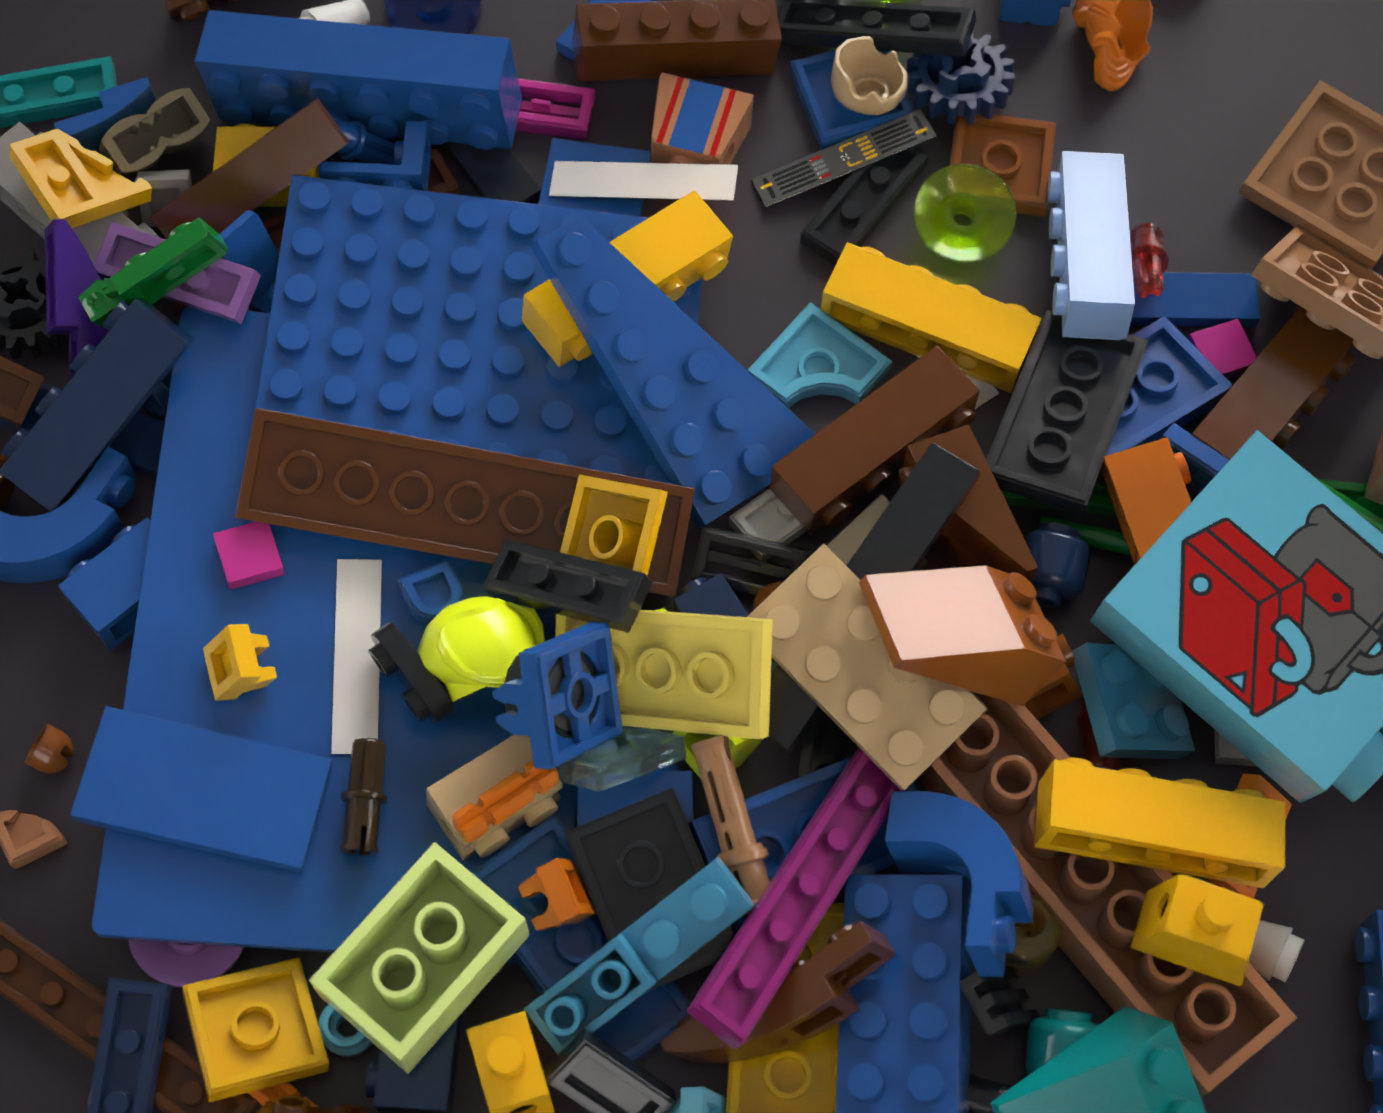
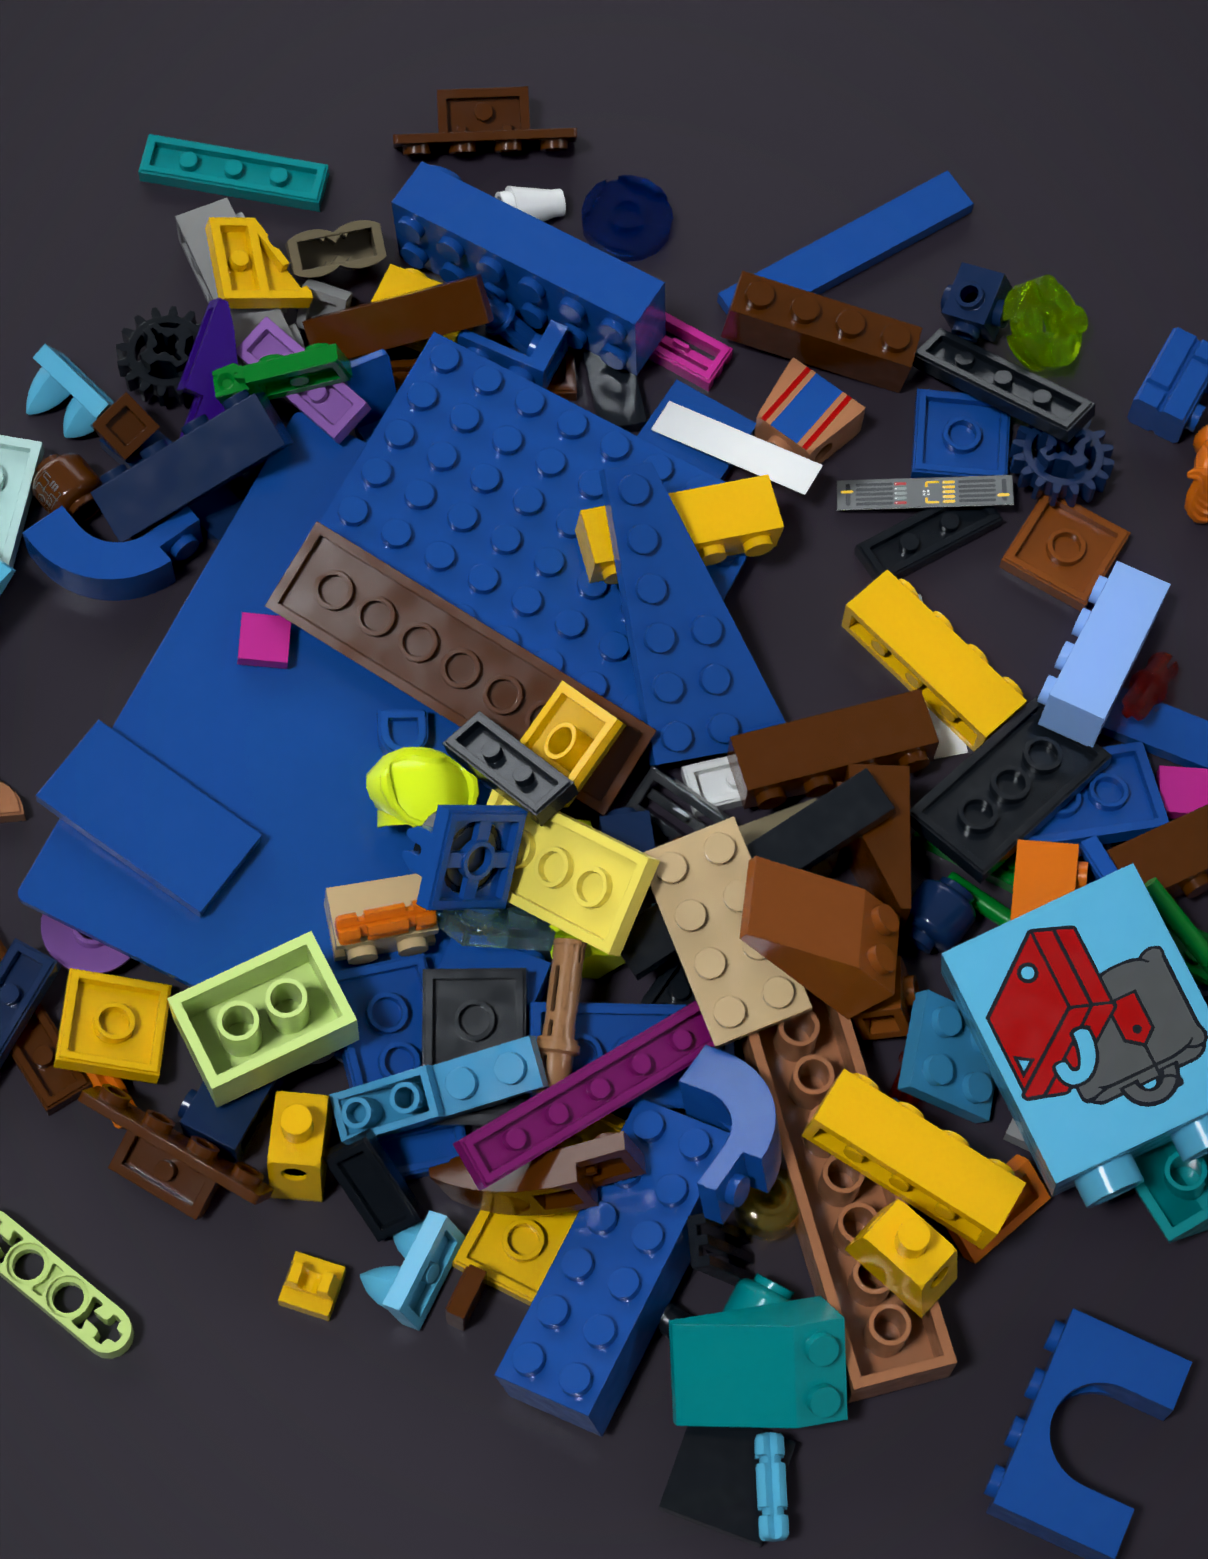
camera: 20 degrees right, 0 degrees up
(50, 750) = (41, 738): dark orange hinge -> none
(109, 585) = (142, 621): blue slope -> none
(117, 104) = (316, 213): blue slope -> none
(234, 663) = (215, 724): yellow tile -> none
(335, 1043) = (170, 1058): medium azure plate -> none
(354, 669) = (318, 760): white sticker -> none
(364, 797) = (275, 875): dark brown axle -> none
(424, 693) = (348, 771): black plate -> none
(565, 894) = (402, 1016): orange tile -> none
(819, 358) = (819, 661): medium azure tile -> none
(866, 78) = (973, 429): tan hair -> none
(971, 192) = (1012, 561): clear neon green dish -> none
(1275, 950) = (971, 1305): white cone -> none

